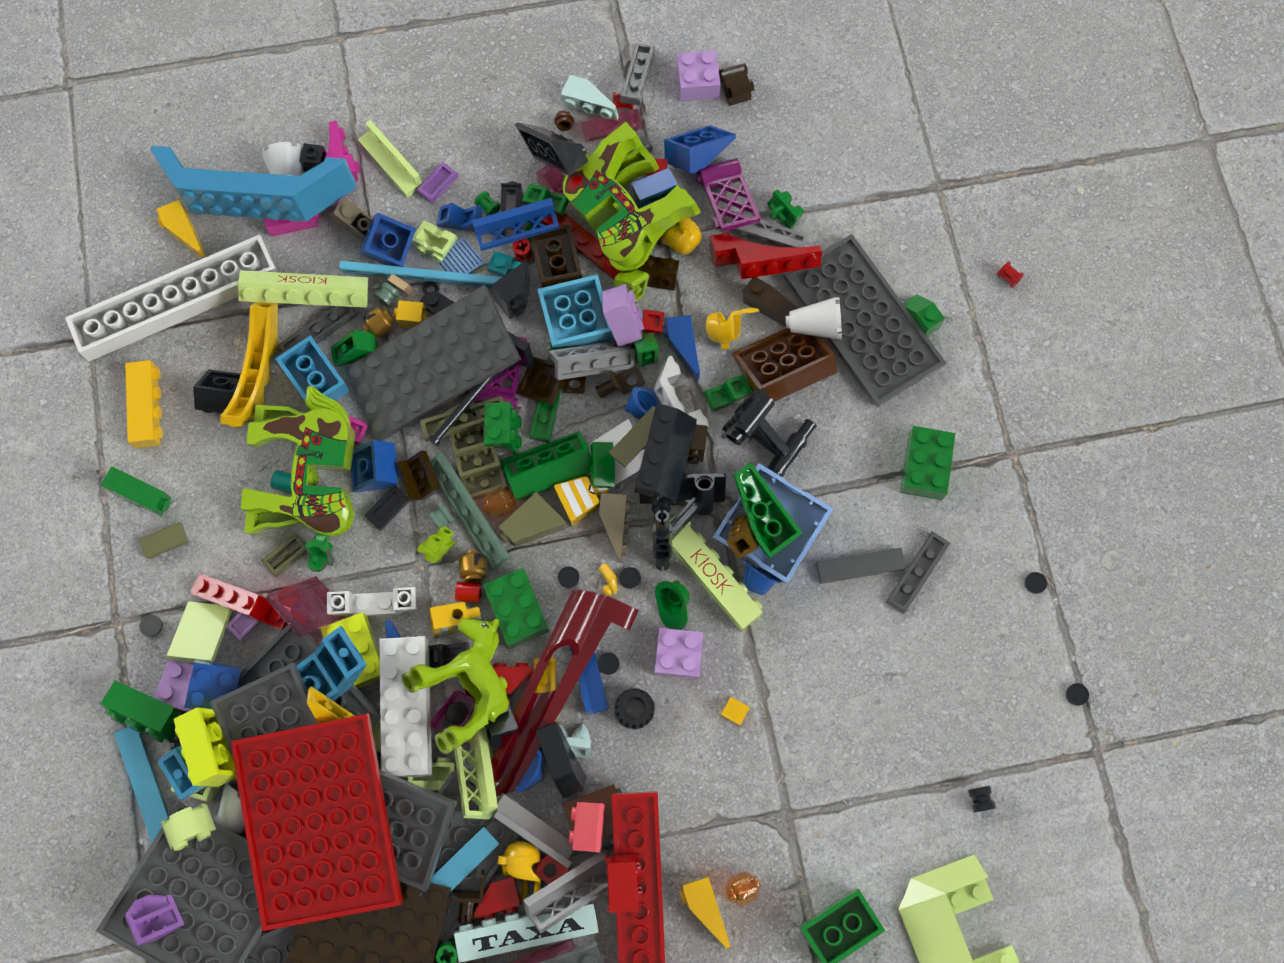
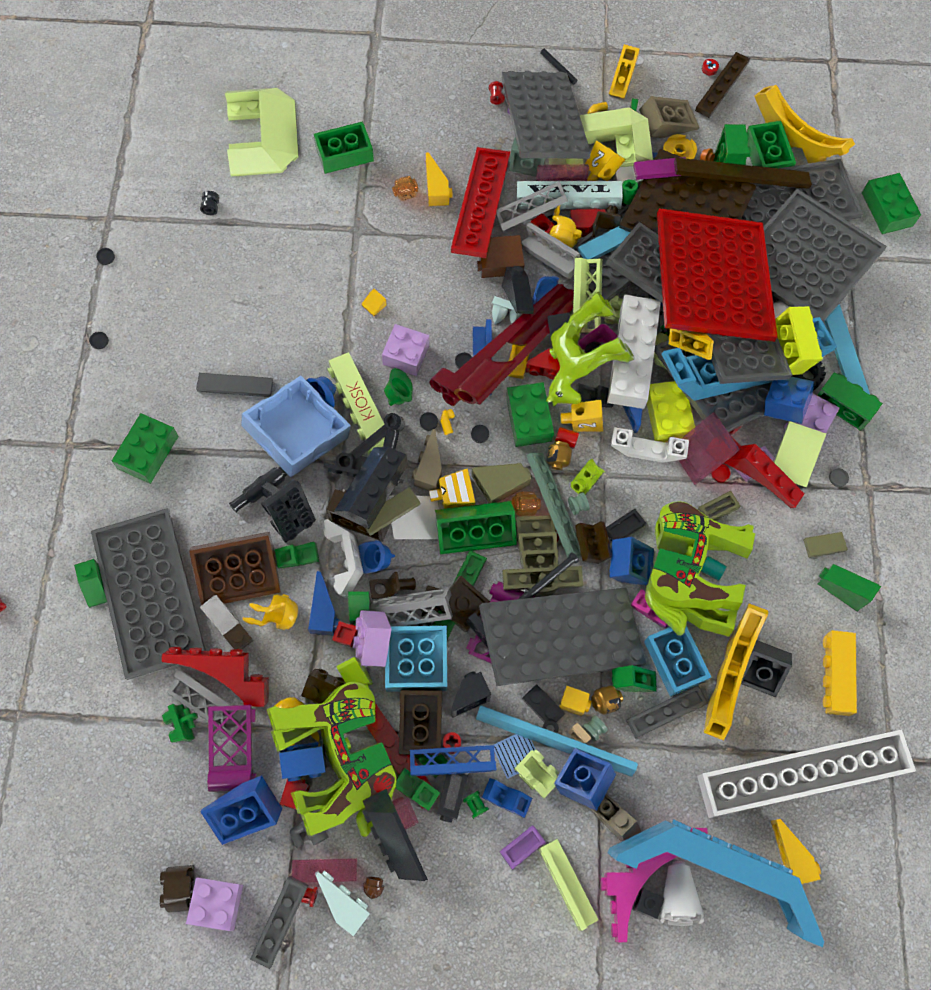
camera: 170 degrees left, 5 degrees down
(153, 918) = (844, 243): medium lavender slope -> none
(188, 825) = (817, 298): yellowish green cylinder -> none
(302, 289) = (676, 744): yellowish green brick -> none
(319, 553) = (690, 491): green hips -> none
(501, 264) = (474, 735): teal plate -> none
(502, 426) = (510, 560): green bracket -> none
(588, 826) = (508, 237): coral slope -> none
(603, 465) = (426, 512): green slope -> none
(622, 877) = (492, 192): red brick -> none
(636, 694) = (449, 312): black tyre -> none
(741, 537) = (323, 415): pearl gold brick -> none
(767, 517) = (300, 421): green wedge -> none
(818, 319) = (191, 590): white cone -> none
(917, 572) = (190, 369): dark grey tile -> none

